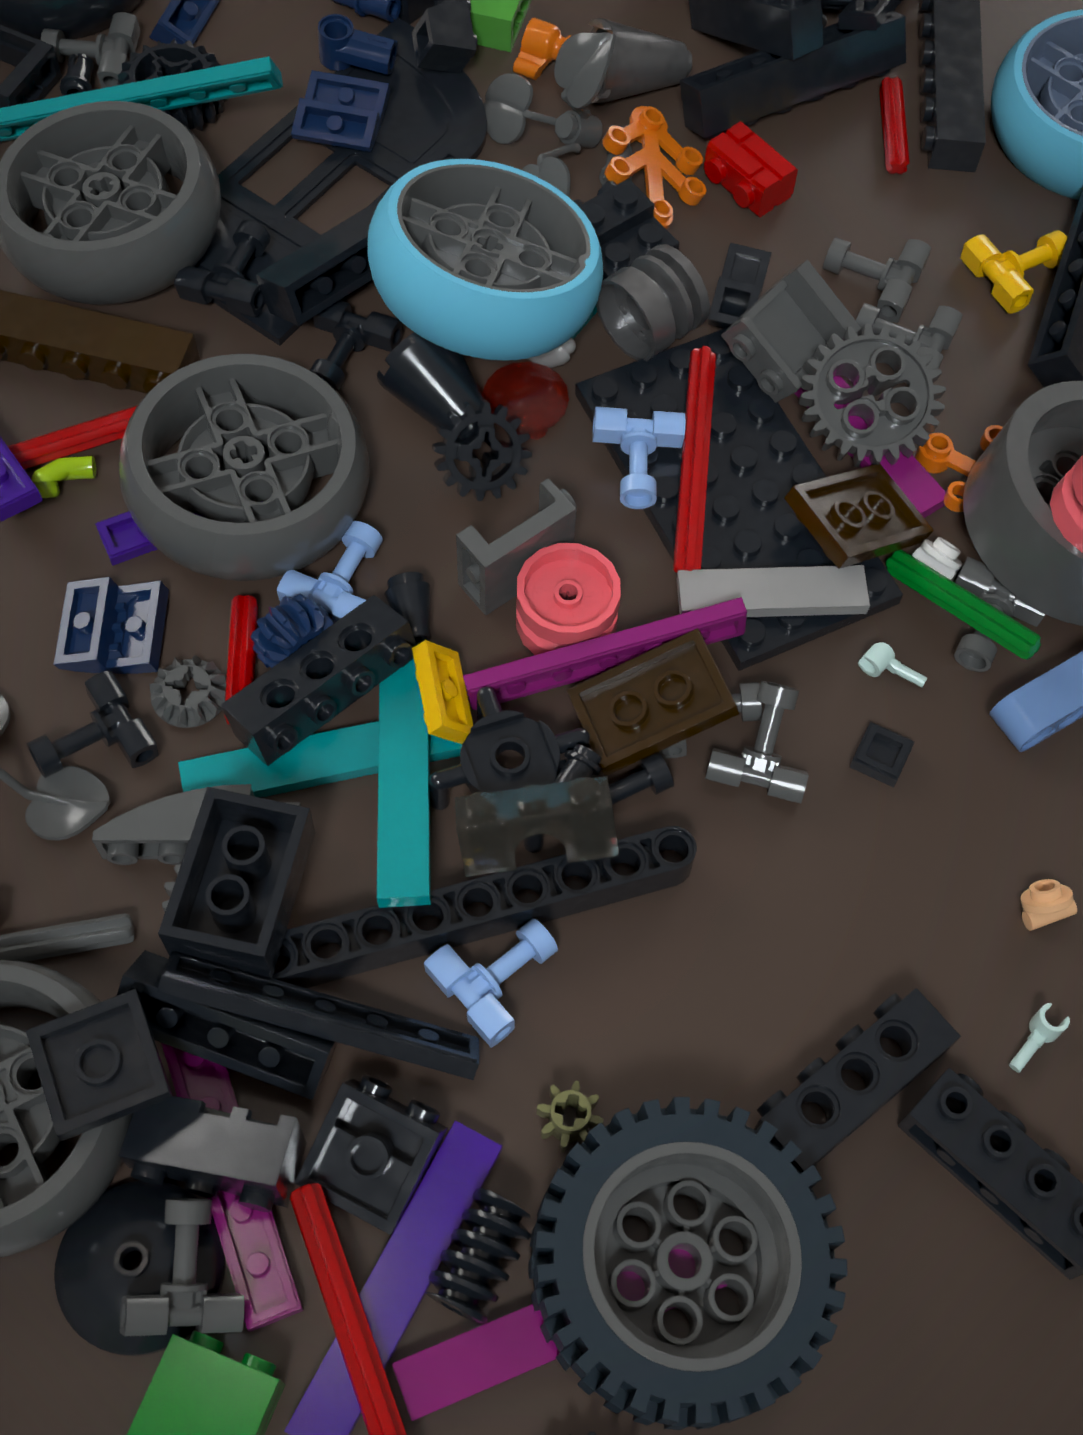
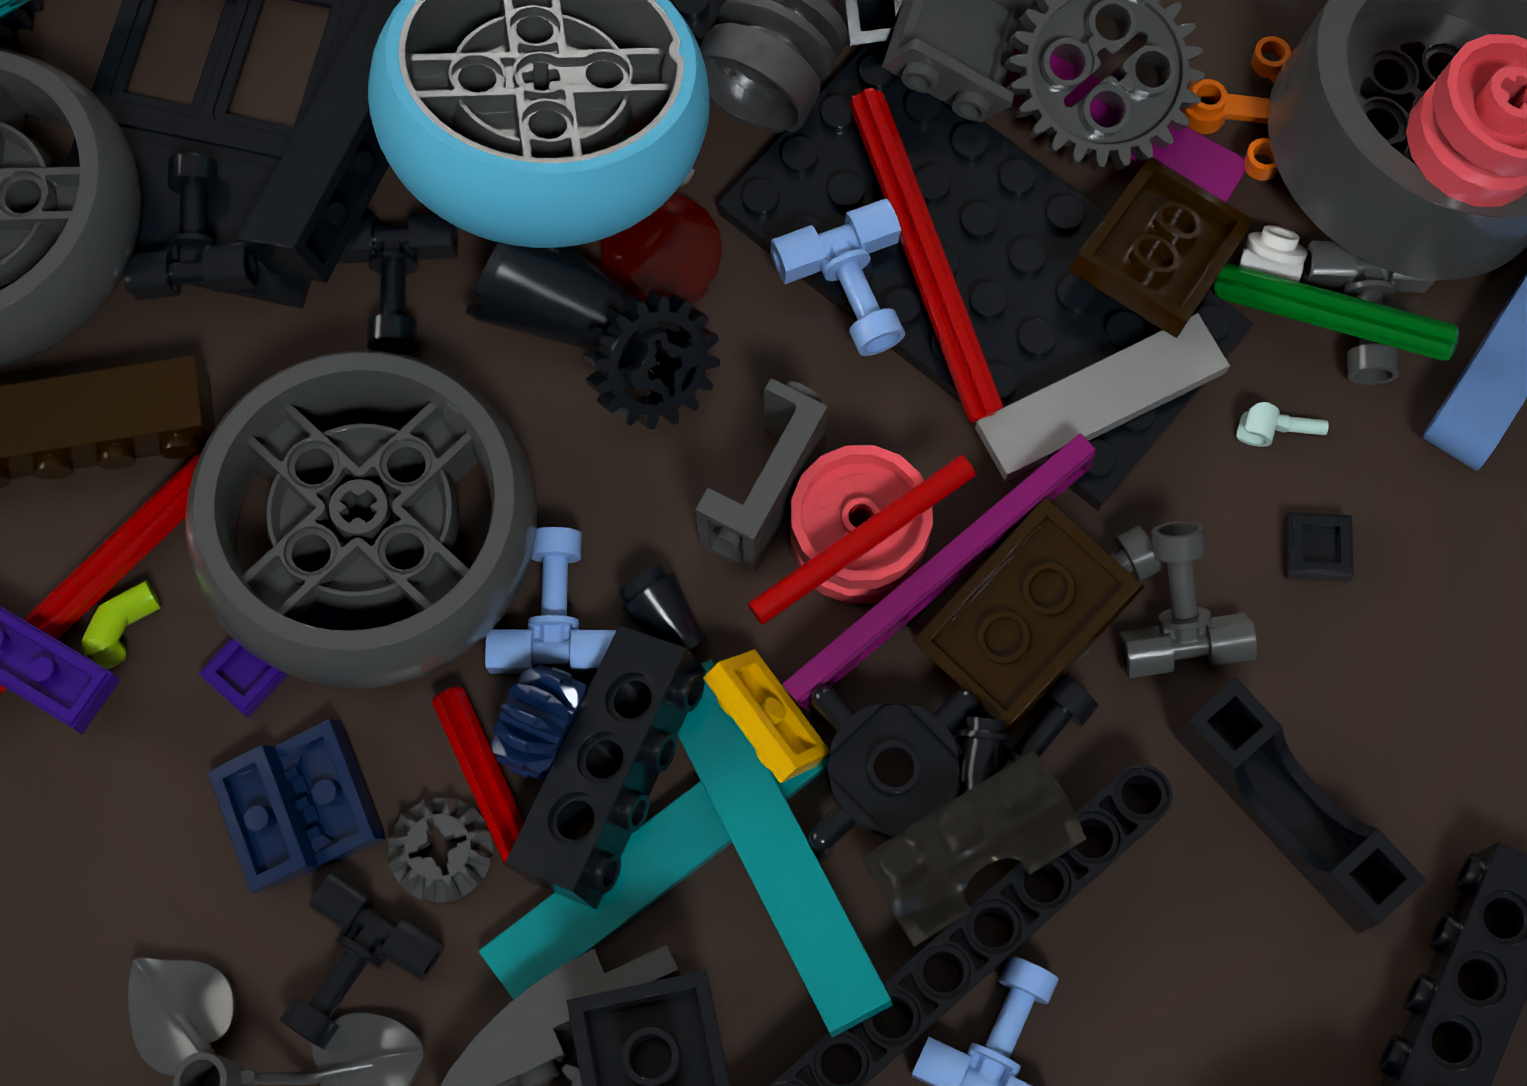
camera: 20 degrees left, 10 degrees up
(558, 600) = (861, 540): none -> red bar
(795, 949) = (1336, 853): none -> black arch

